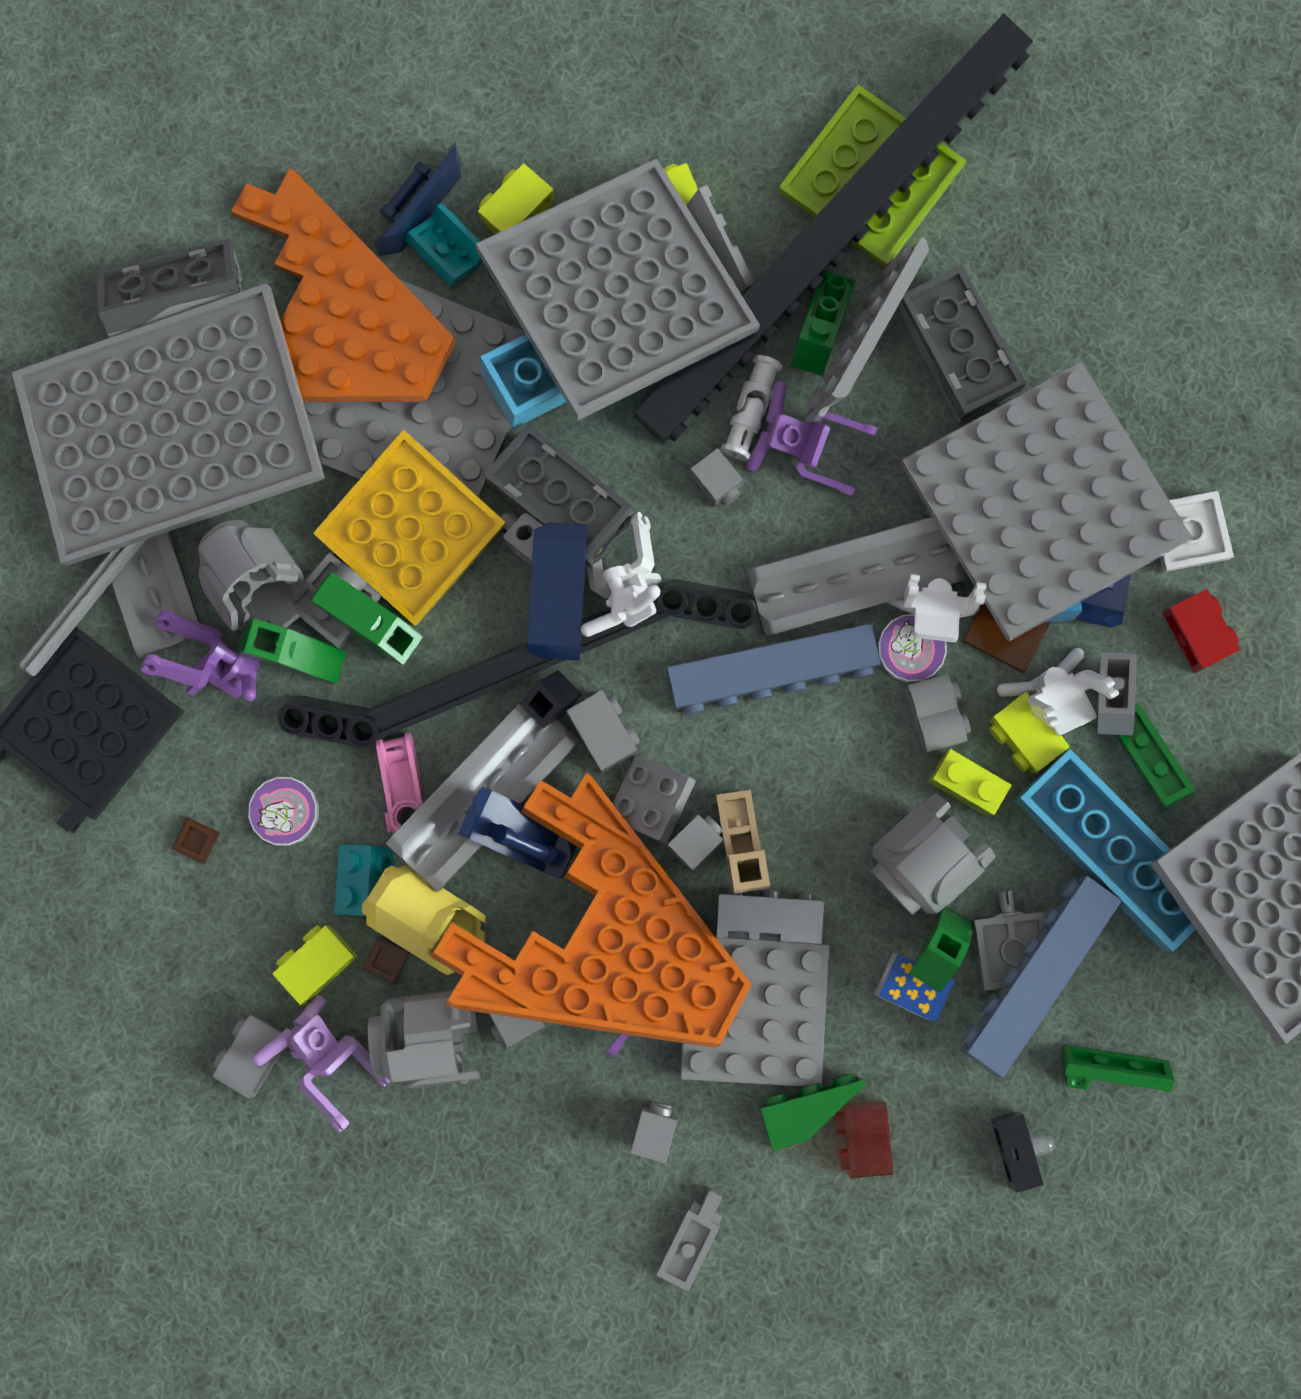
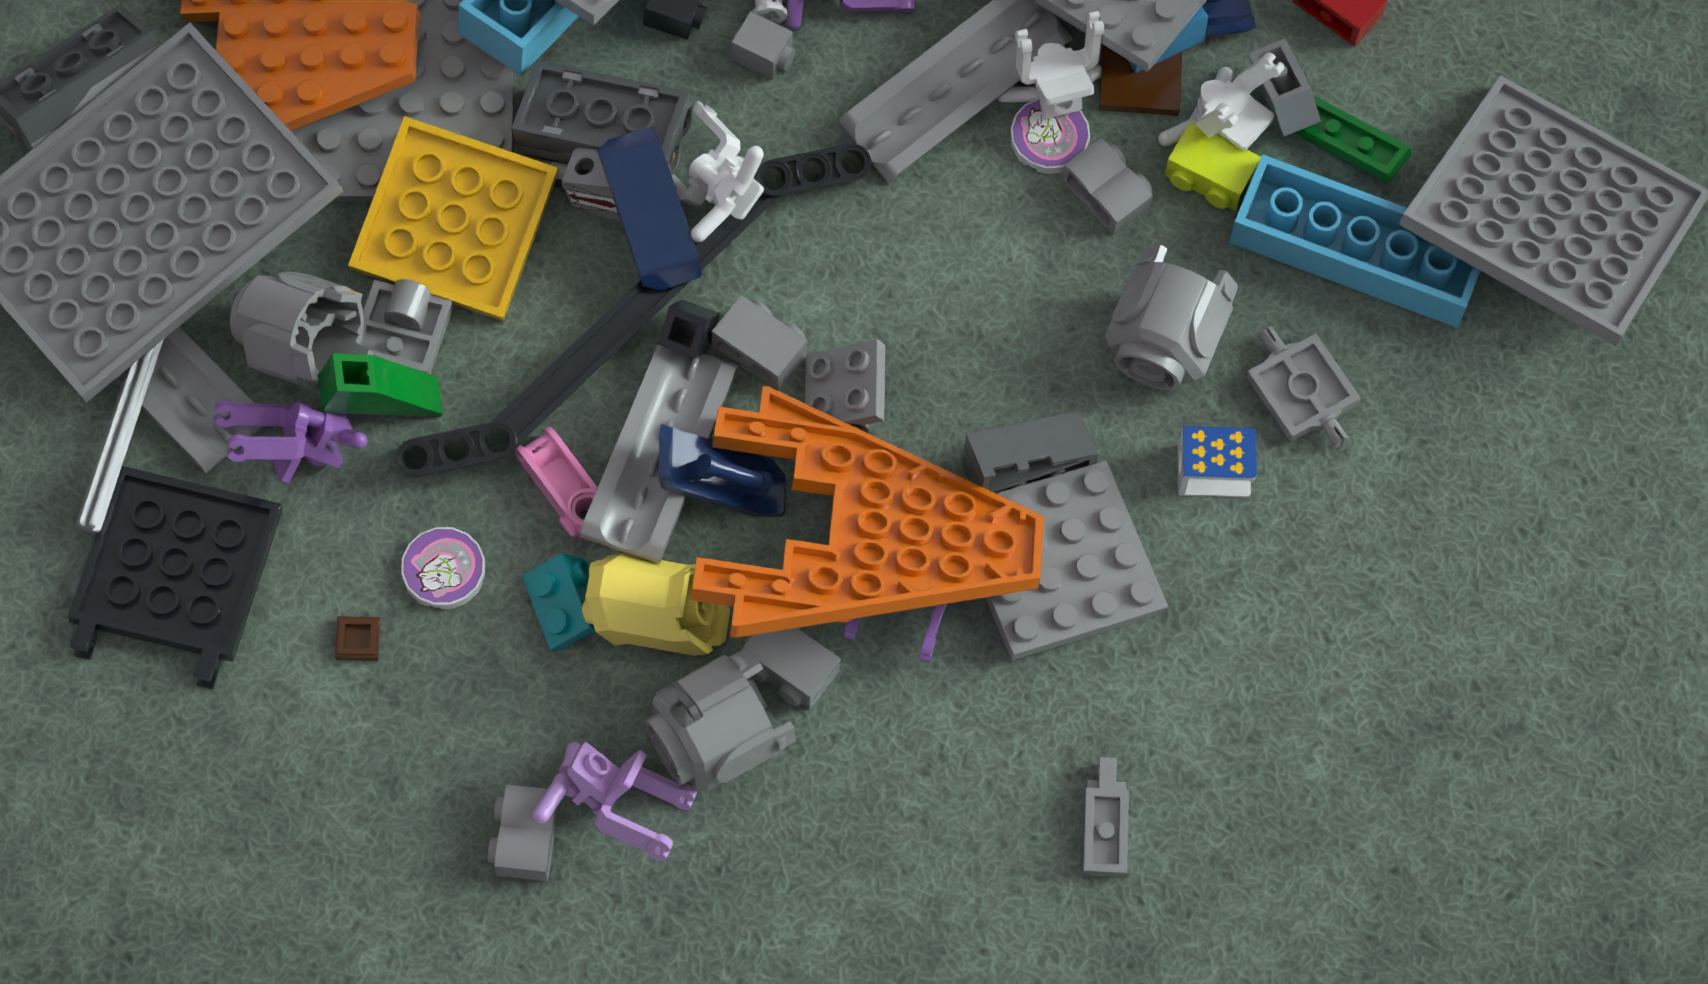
camera: 30 degrees left, 15 degrees down
(314, 964) = (553, 706): neon yellow brick -> none
(366, 619) = (453, 323): green slope -> none
(386, 960) = (630, 676): reddish brown tile -> none
(654, 1132) = (1011, 716): light grey brick -> none
(696, 841) = (914, 406): light grey brick -> none
(741, 842) = (967, 397): tan arch -> none
(774, 668) = (912, 208): sand blue brick -> none
(801, 1116) = (1155, 646): green slope -> none
(865, 1139) = (1241, 638): clear red brick -> none
(943, 949) = (1227, 402): green slope -> none
(969, 783) = (1187, 235): neon yellow brick -> none
(1020, 1150) = (1408, 581): black piece -> none
(1039, 975) = (1341, 391): sand blue brick -> none
(1090, 1064) = (1432, 470): green hinge -> none

